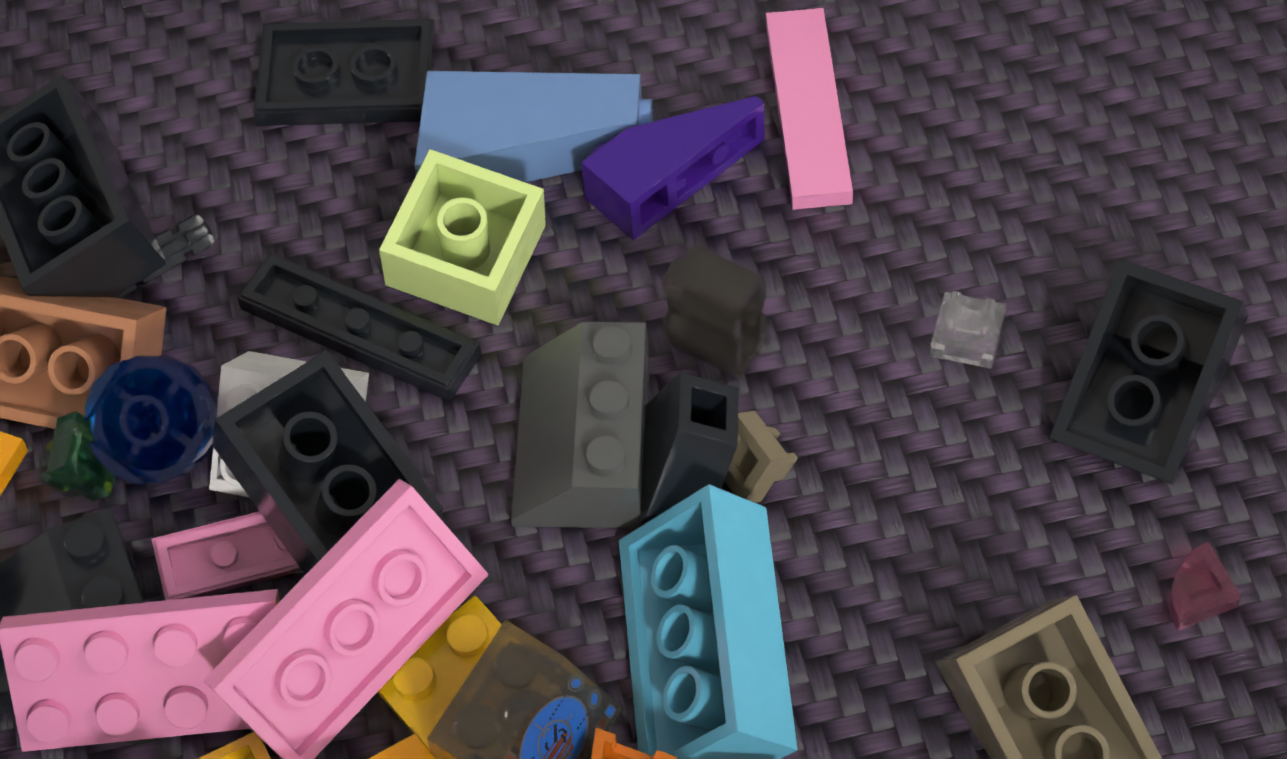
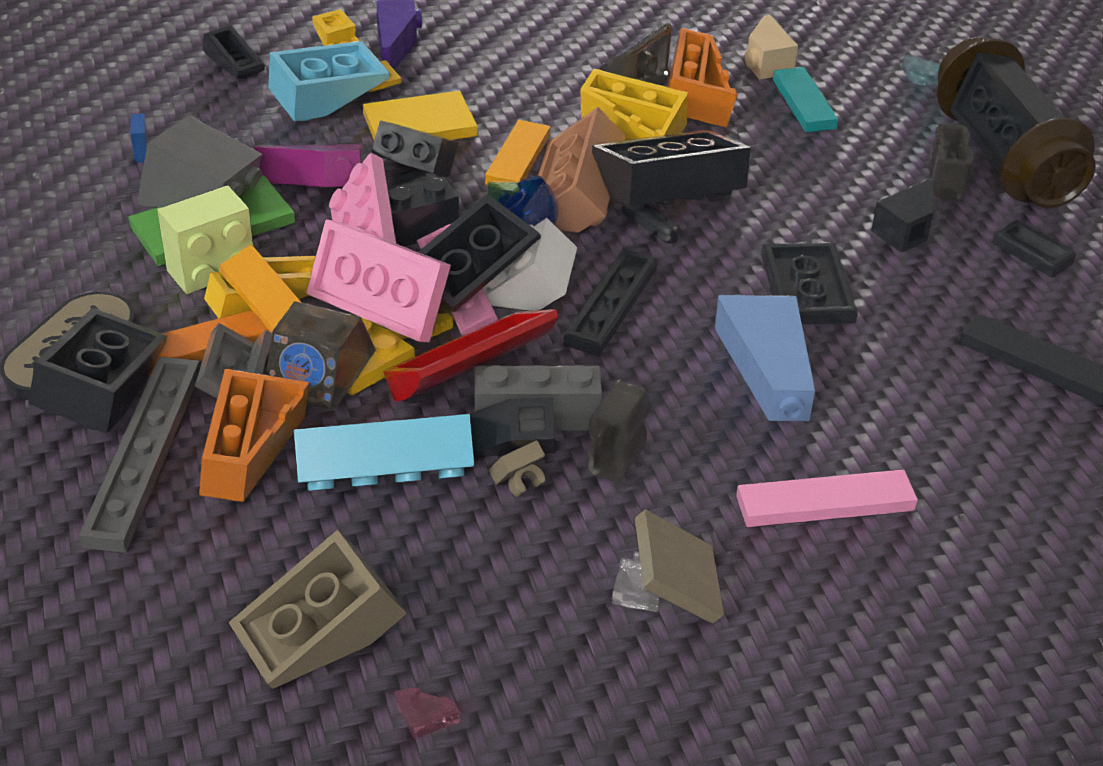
camera: 80 degrees right, 15 degrees down
(463, 237) = (668, 323): yellowish green brick -> none
(523, 500) = (467, 352): none -> red slope
(666, 161) = (754, 420): dark purple slope -> none
(967, 269) = (678, 566): none -> dark tan tile
(1149, 371) = (608, 679): black slope -> none

